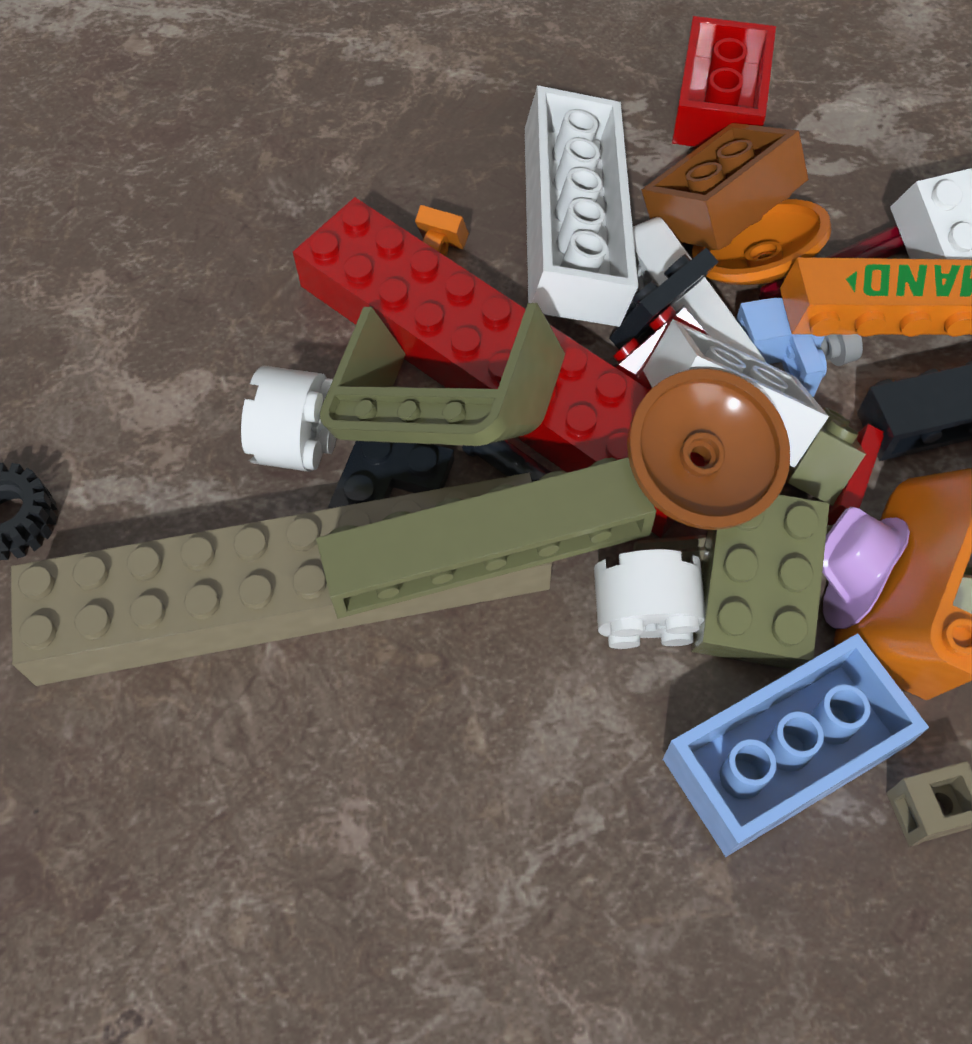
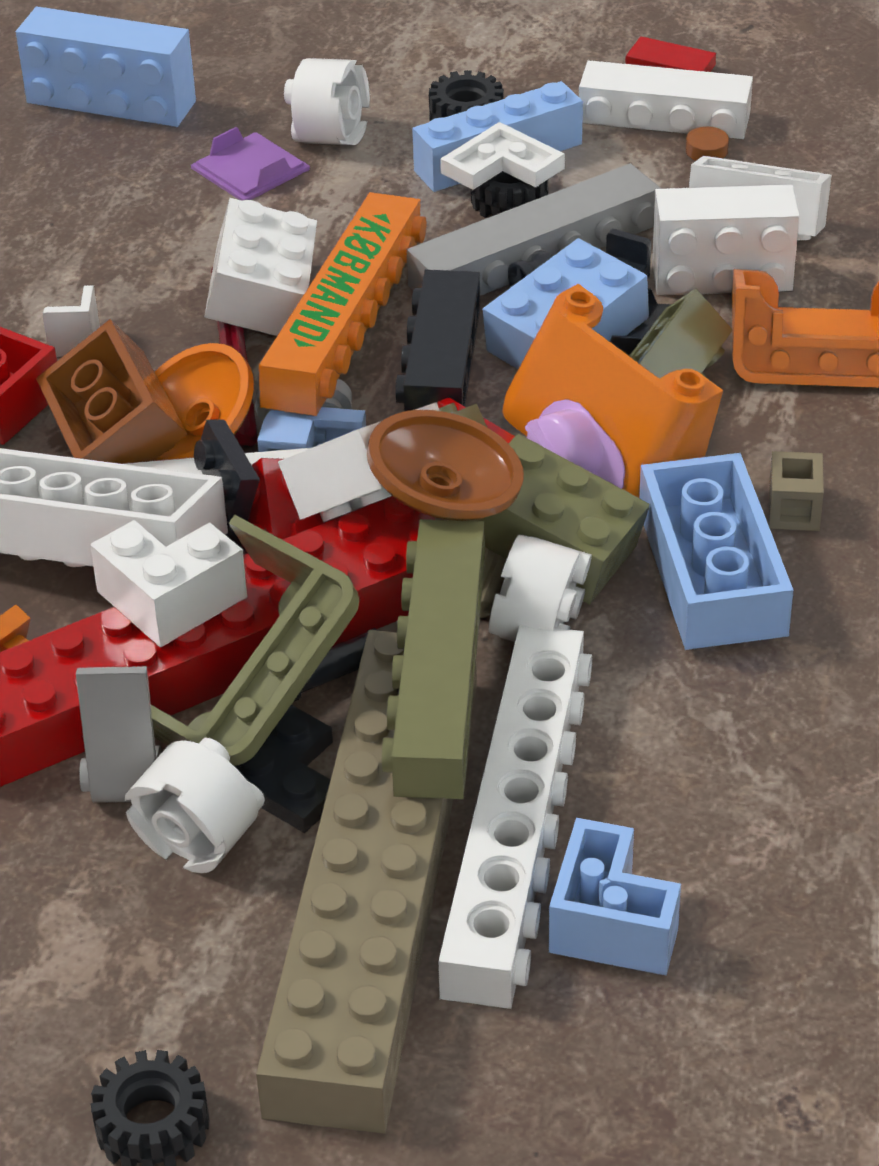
camera: 70 degrees left, 20 degrees down
(202, 682) = (514, 820): none -> white brick
(273, 775) = (605, 910): none -> light blue brick
(320, 343) = (115, 730): none -> light grey door
(485, 291) = (171, 585): none -> white brick
(831, 130) = (71, 324): none -> white panel

